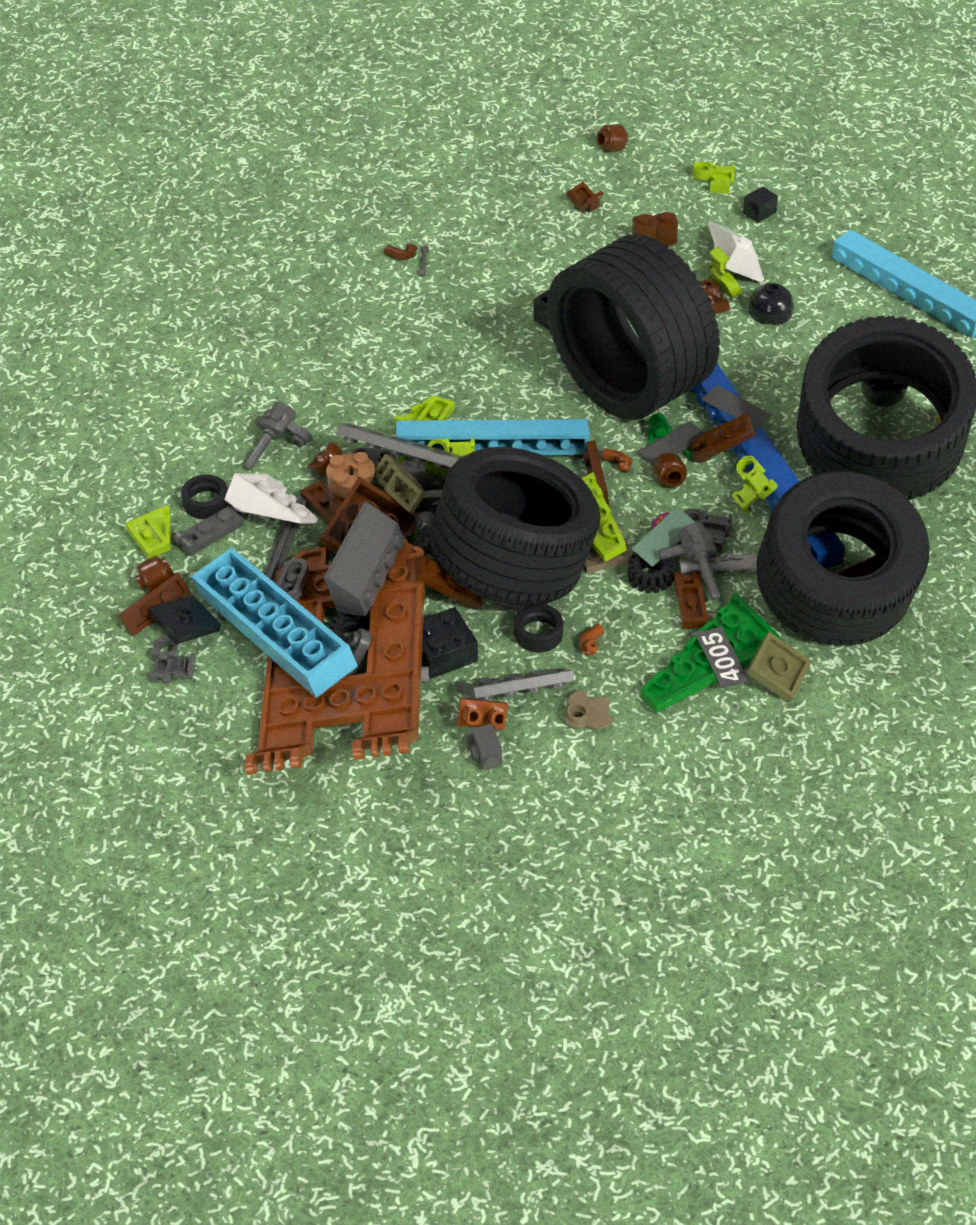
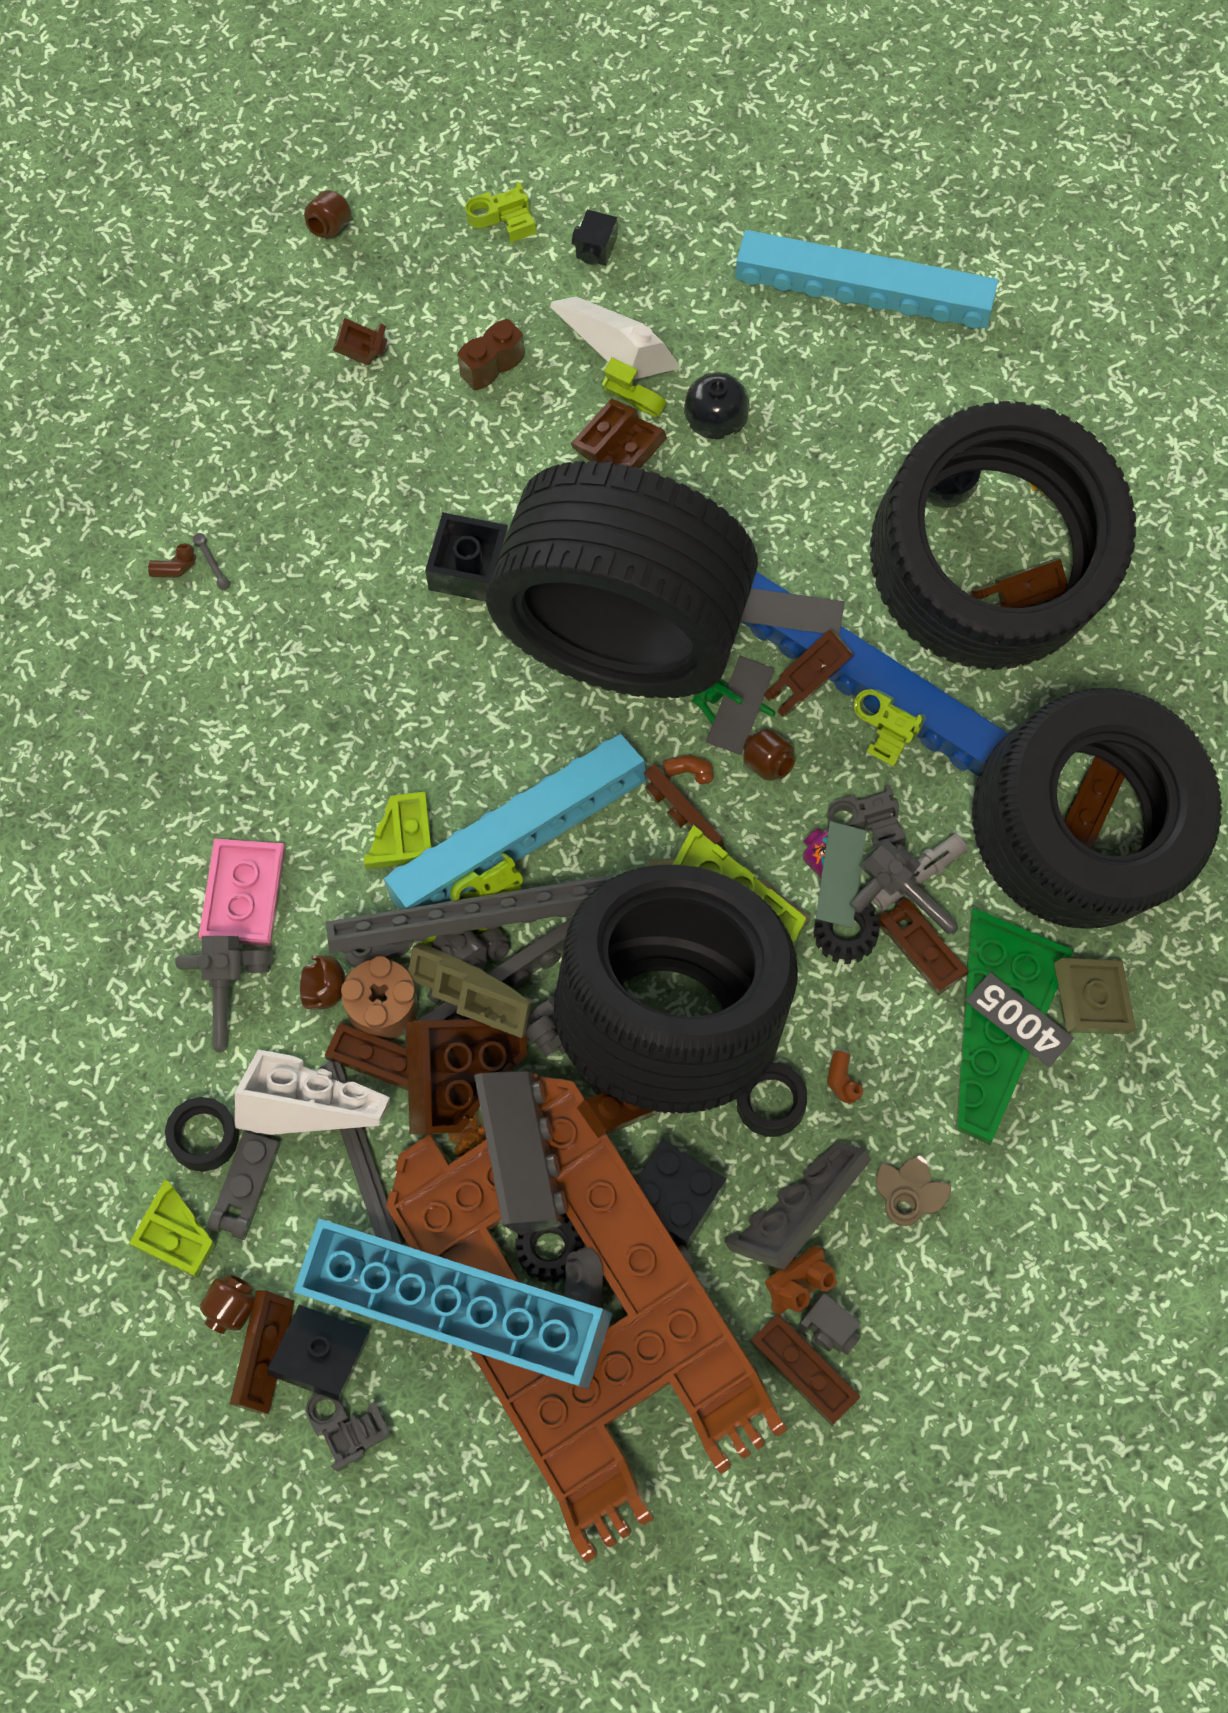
camera: 30 degrees left, 20 degrees up
(294, 577) = (427, 1218): dark grey plate -> none
(321, 404) = (242, 890): none -> bright pink tile
(452, 762) = (804, 1369): none -> reddish brown plate

